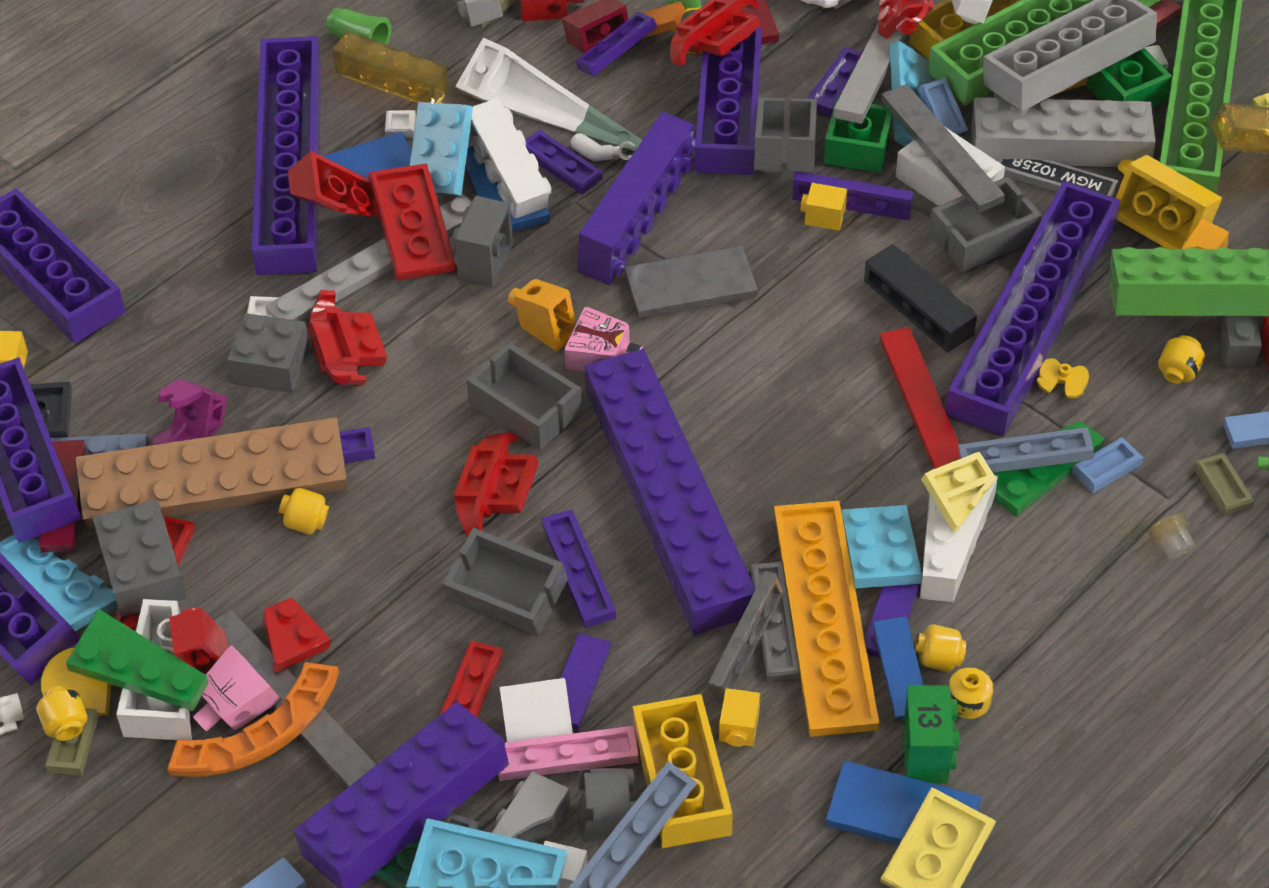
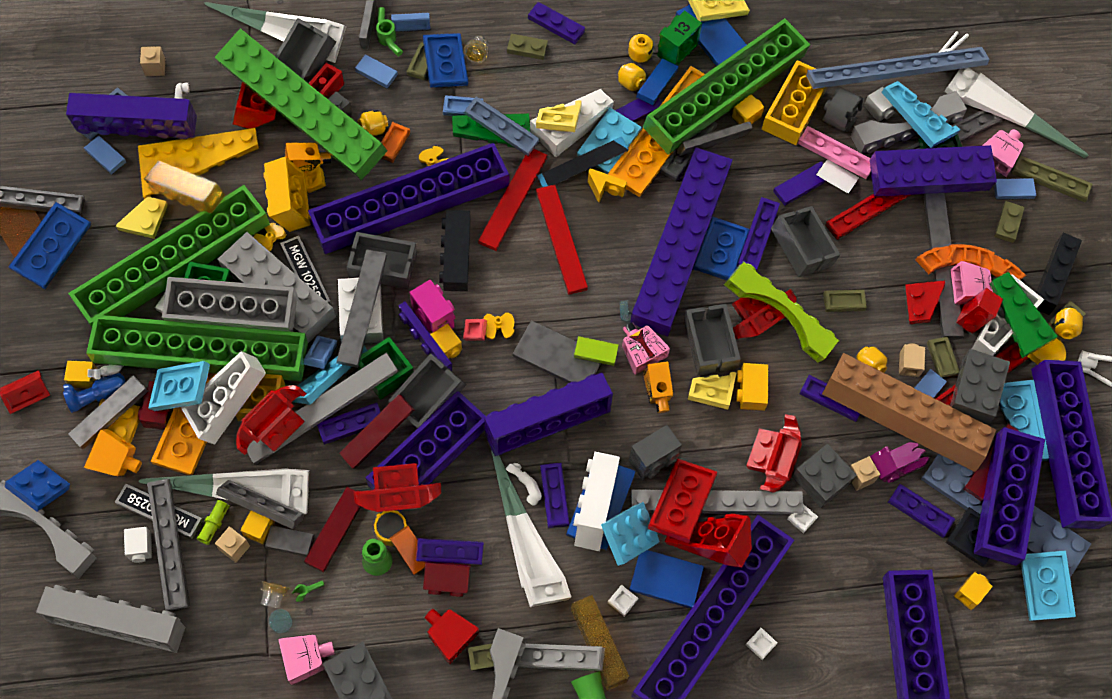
camera: 145 degrees left, 15 degrees up
(121, 405) = (921, 510): none -> dark purple tile
(122, 794) = (1057, 272): none -> black brick
(210, 537) = (930, 383): none -> medium blue tile
(214, 588) = (943, 357): none -> olive tile
(219, 177) = (761, 643): none -> white tile
(225, 379) = (866, 473): none -> tan brick
(241, 837) = (1009, 222): none -> olive plate
(252, 547) = (912, 360): none -> tan brick
(397, 571) = (844, 300): none -> olive tile
(418, 29) = (562, 657): none -> light grey tile
(431, 390) = (753, 386): none -> yellow brick
(470, 354) = (713, 390): none -> light yellow wing
(524, 459) = (813, 337): none -> lime arch
(612, 524) = (721, 248): none -> blue tile
(649, 302) = (596, 351): none -> lime tile
(663, 367) = (624, 311): none -> clear light blue tile
(785, 273) = (505, 323): none -> yellow piece
(795, 716) = (725, 86): none -> bright green brick
(798, 78) = (376, 431): none -> dark red tile
(809, 240) = (475, 330): none -> coral tile
(818, 400) = (561, 239): none -> red tile
(834, 484) = (603, 182): none -> yellow slope
(872, 210) = (431, 306): none -> dark pink brick
(883, 494) = (583, 162): none -> black sticker
(1121, 599) = (527, 46): none -> olive plate
(1122, 660) = (556, 23): none -> dark purple plate
(1136, 366) = (394, 140): none -> orange tile
(1208, 500) = (445, 60): none -> blue tile

